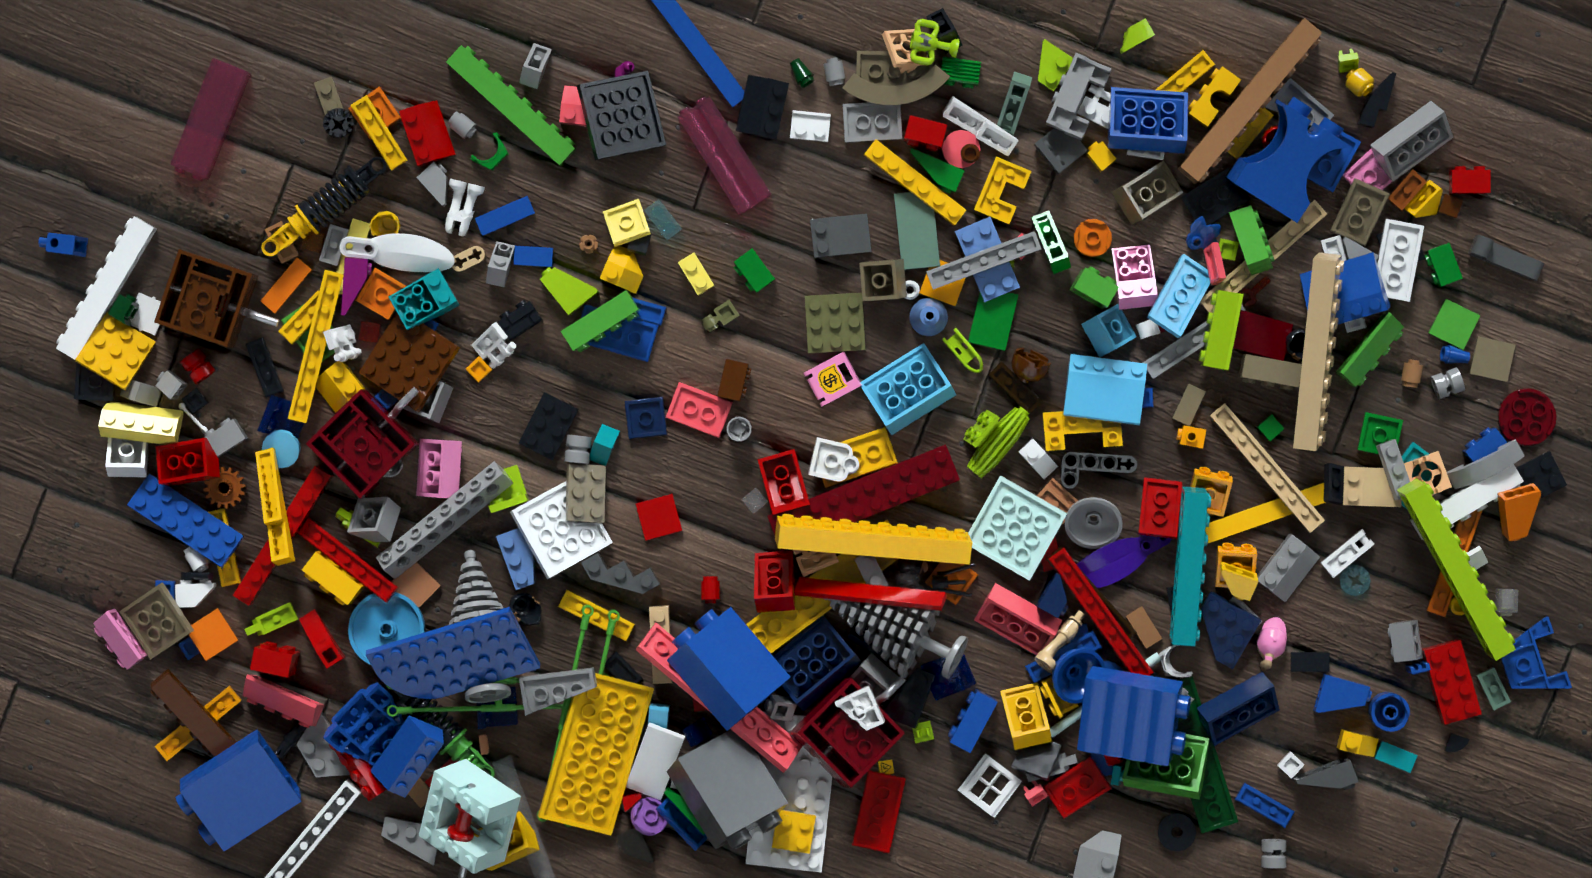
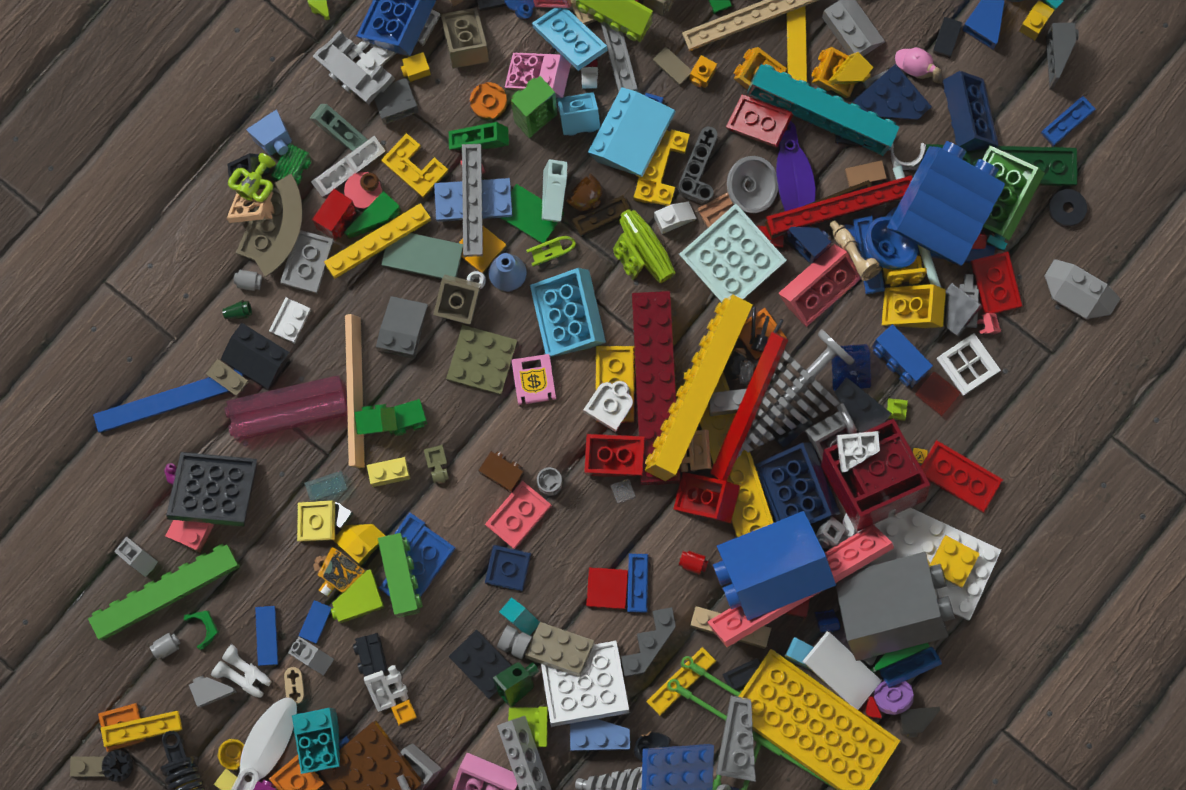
camera: 70 degrees left, 10 degrees down
(427, 133) = (159, 682): red slope -> none
(540, 463) = (515, 682): none -> dark green torso
(585, 262) = (338, 572): none -> torso
(673, 543) = (637, 583): none -> blue tile
(733, 88) = (227, 378): none -> dark tan plate
(739, 245) = (375, 420): none -> green brick
(762, 213) = (354, 388): none -> light nougat tile
(951, 765) = (937, 393): none -> clear red piece
(984, 41) = (271, 134): none -> medium blue torso
(1022, 334) = (553, 190): none -> light aqua slope
(1052, 65) = (317, 83): lime wing -> none
(1272, 860) = (1116, 125): light grey wheel -> none
(1290, 764) = (1037, 84): white plate -> none

